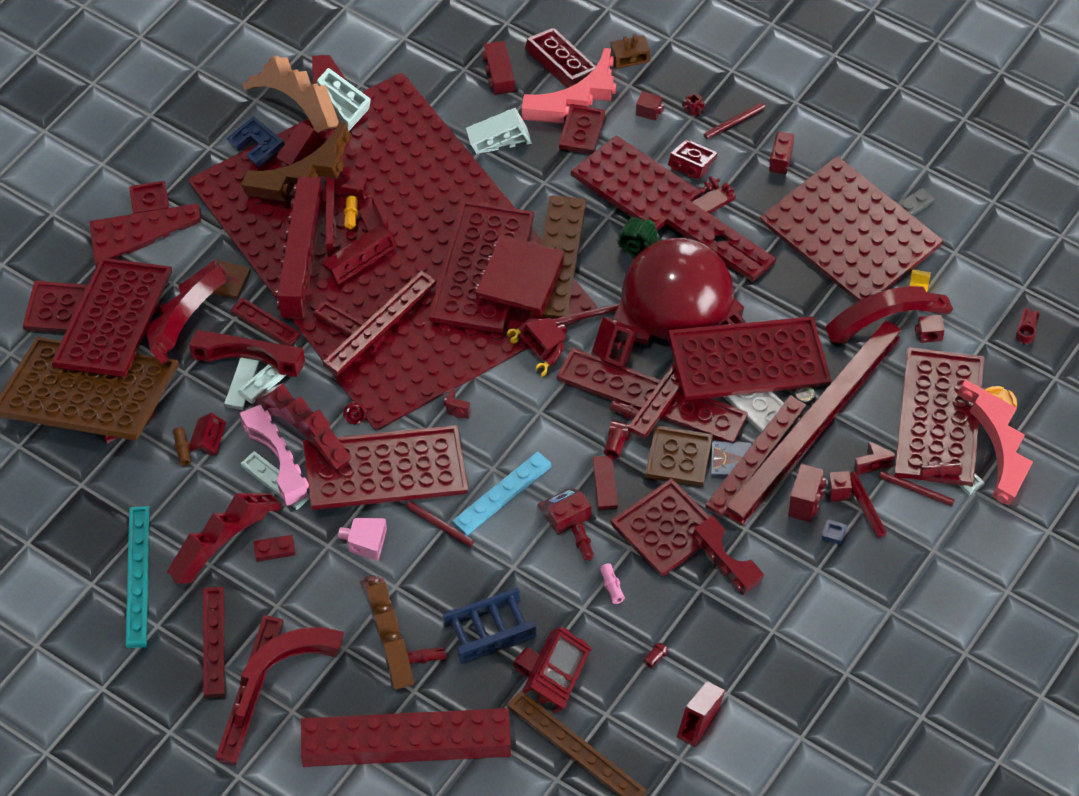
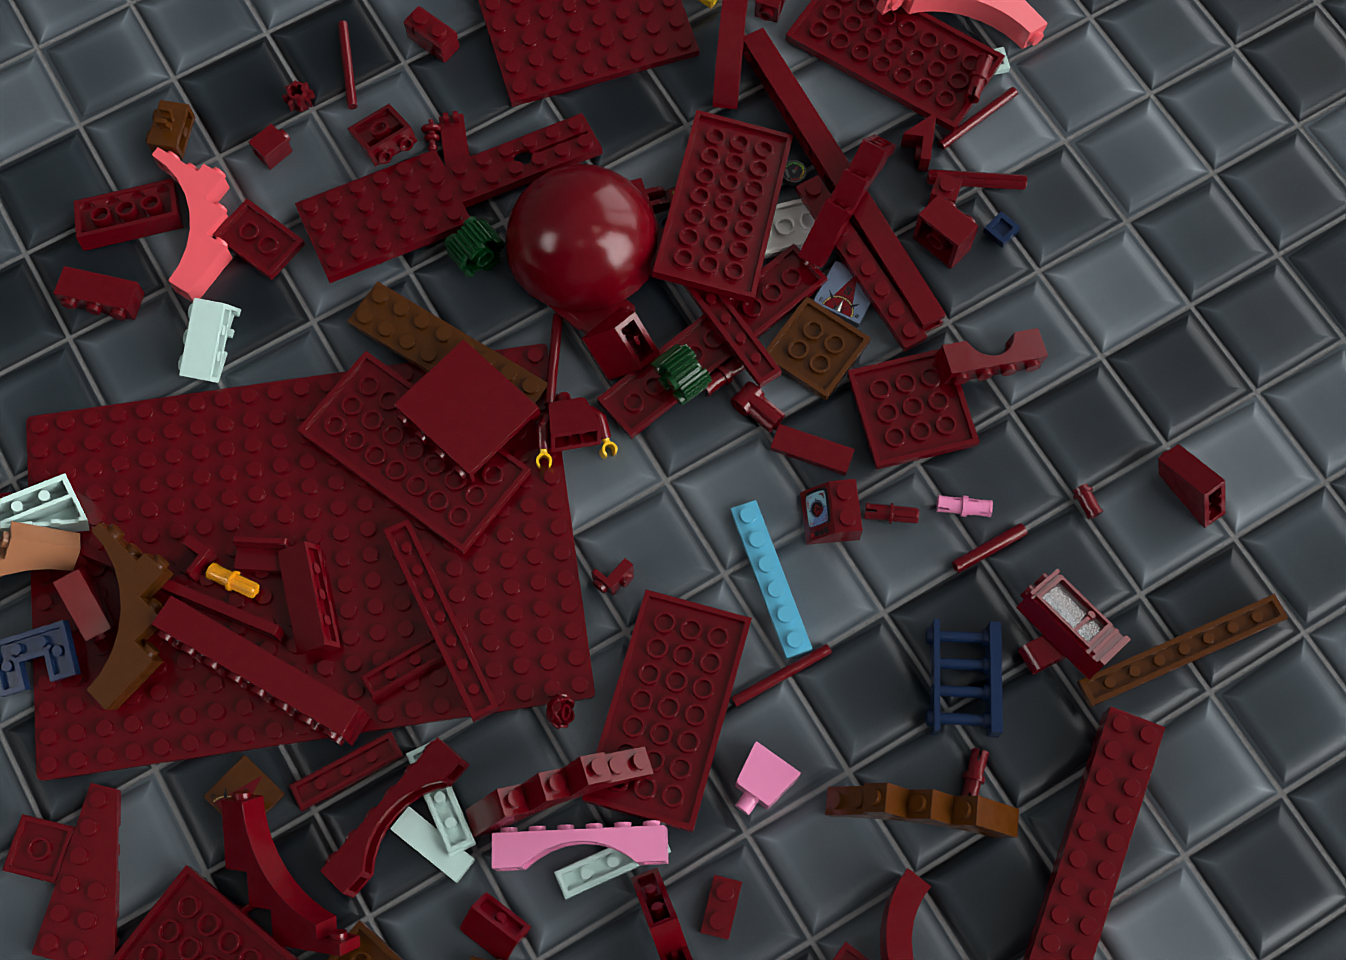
camera: 65 degrees left, 15 degrees up
(590, 609) = (989, 548): none -> dark red piece
(609, 378) = (681, 373): none -> dark green brick
(799, 418) = (844, 200): none -> dark red arch

